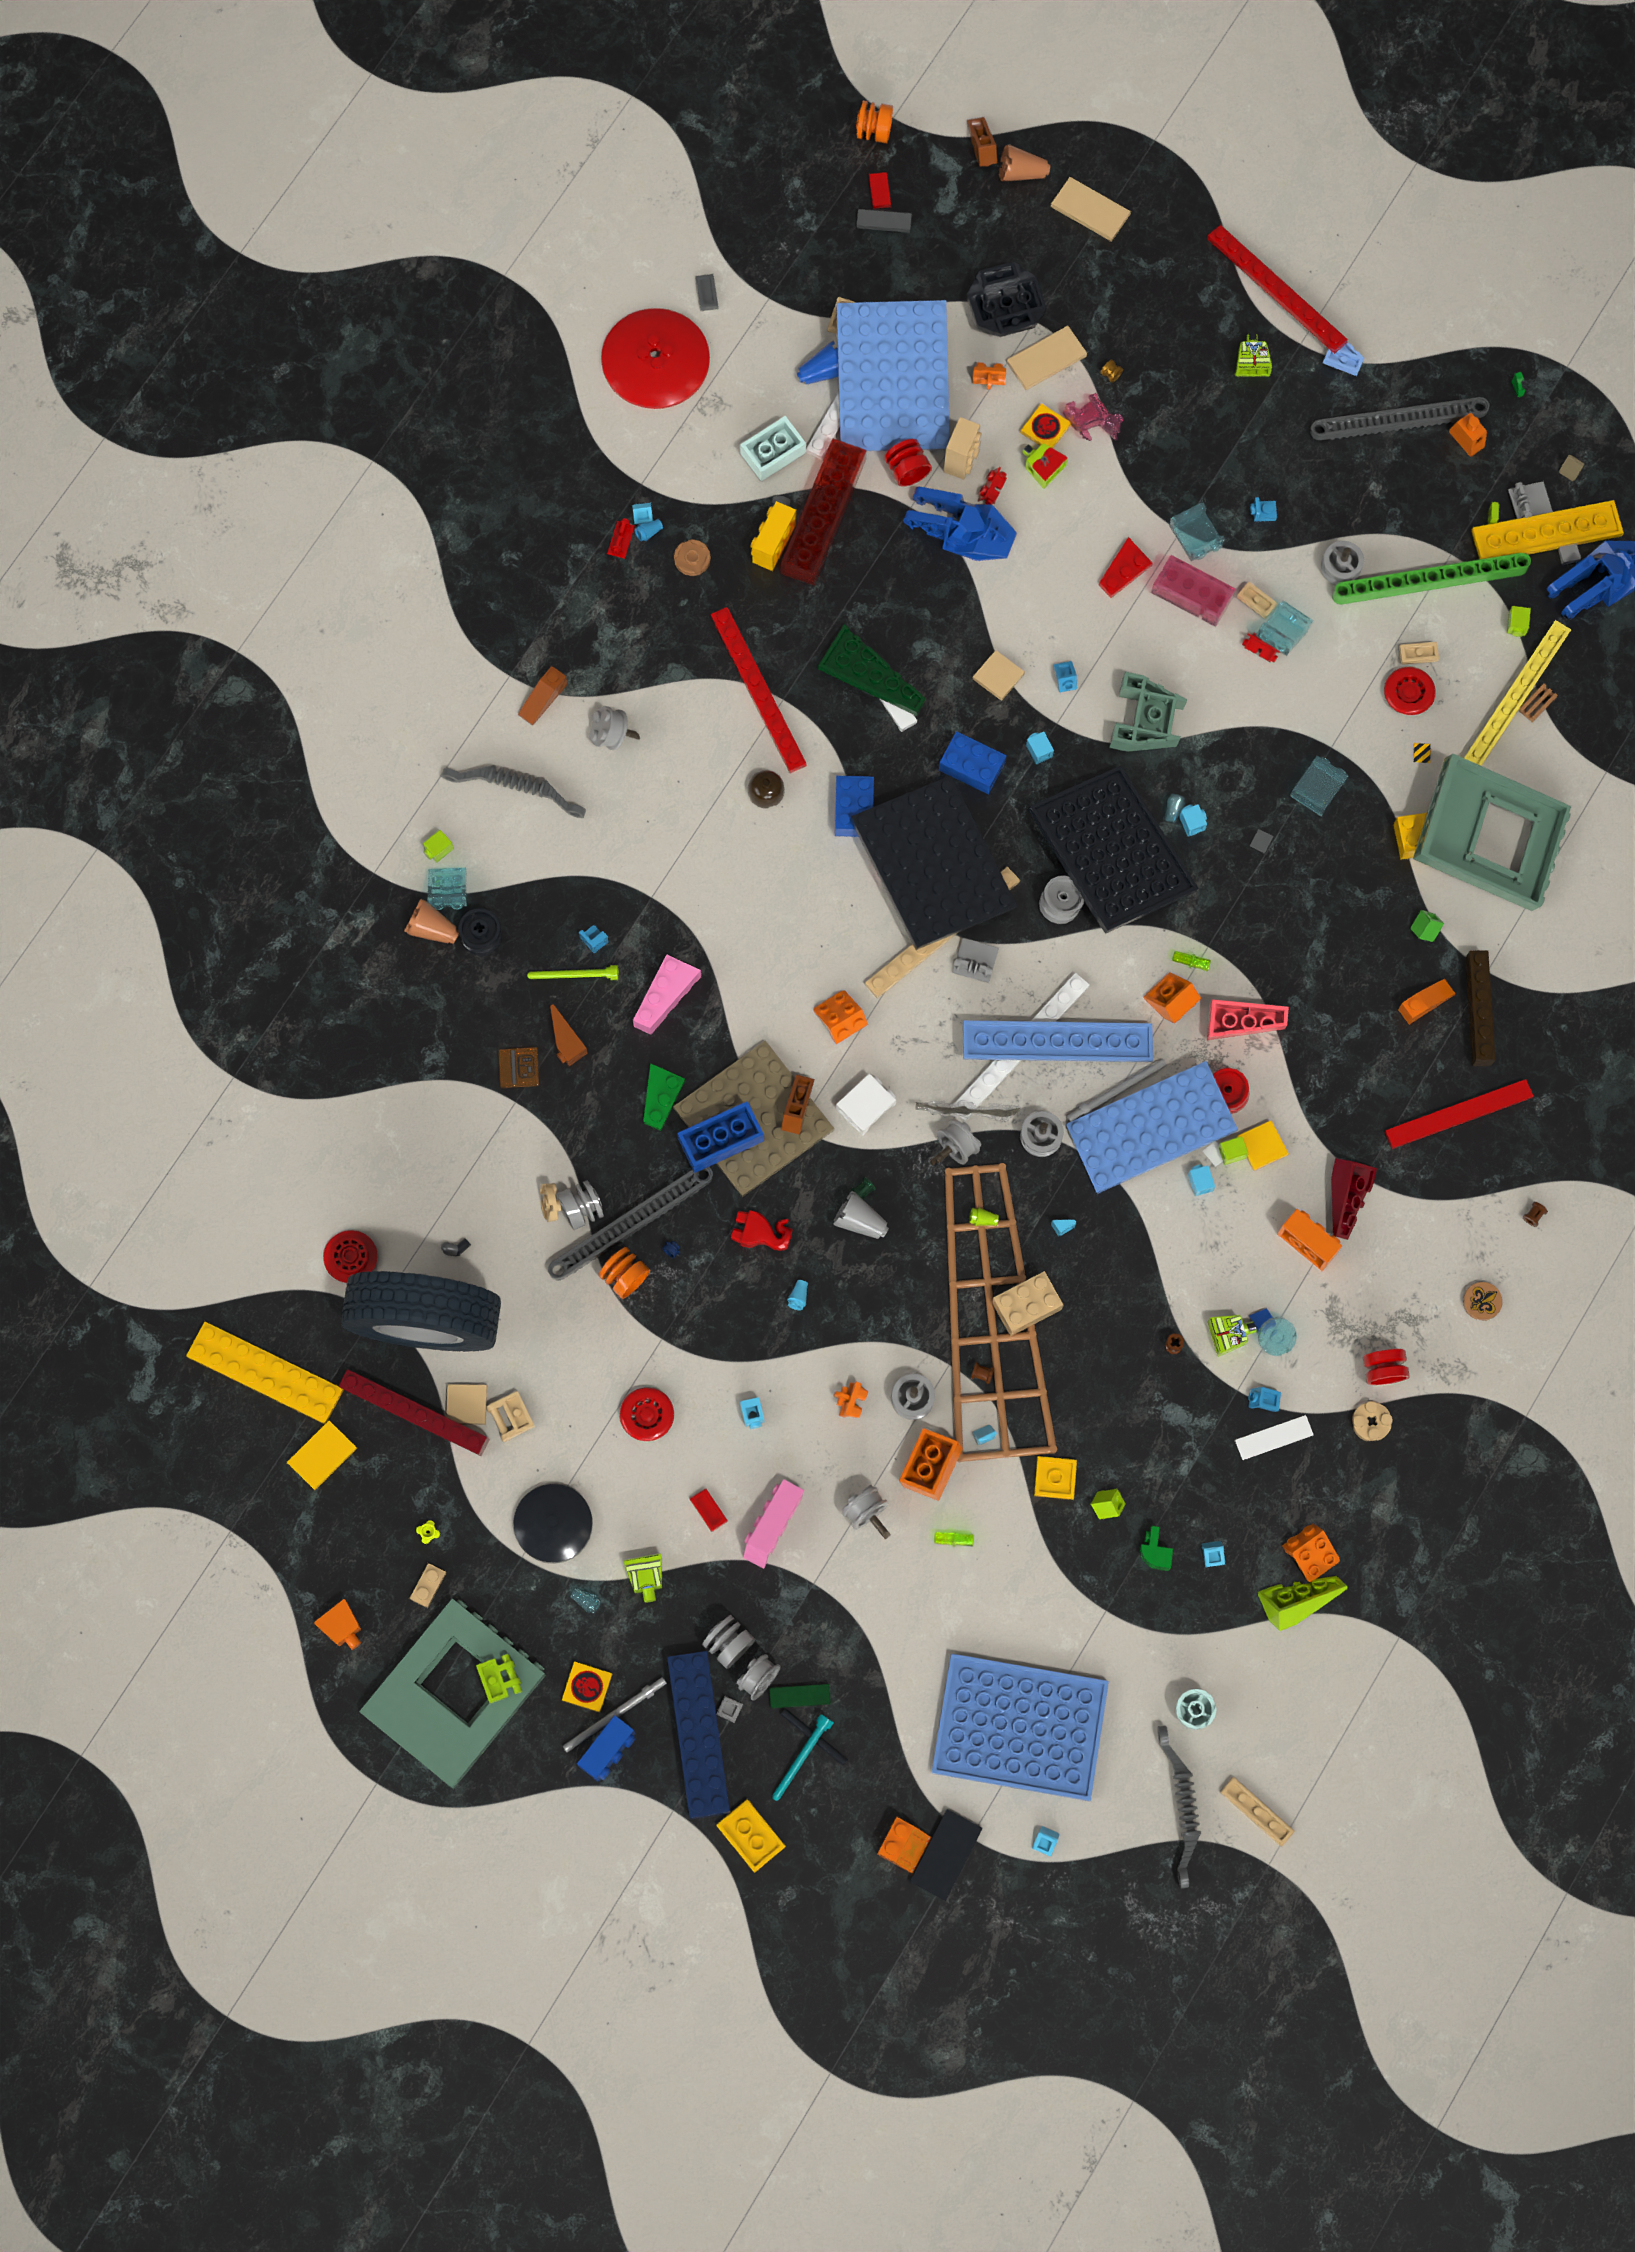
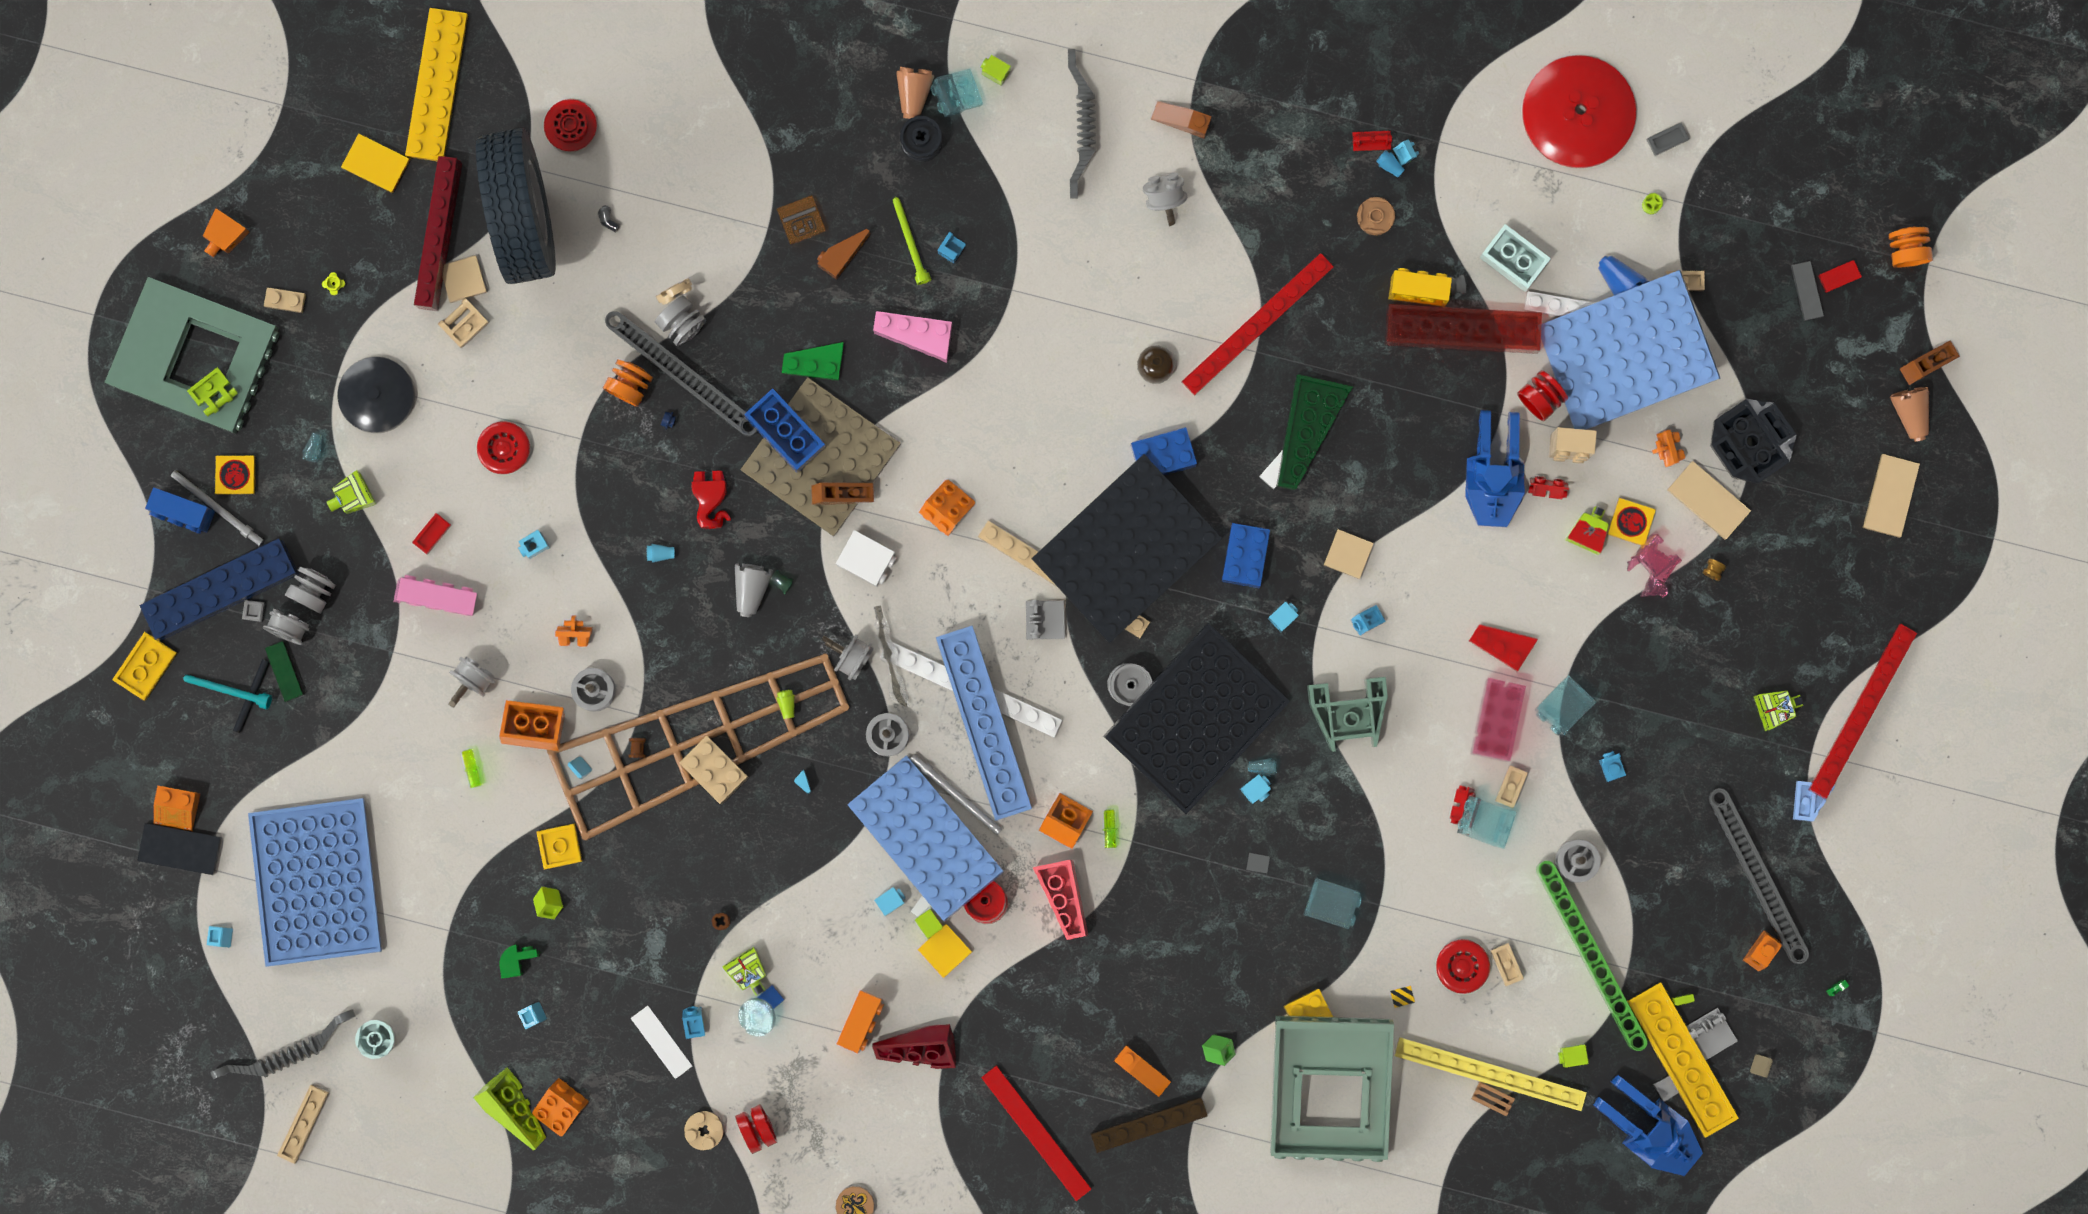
camera: 75 degrees right, 10 degrees up
(759, 318) = (1655, 202): none -> lime wheel

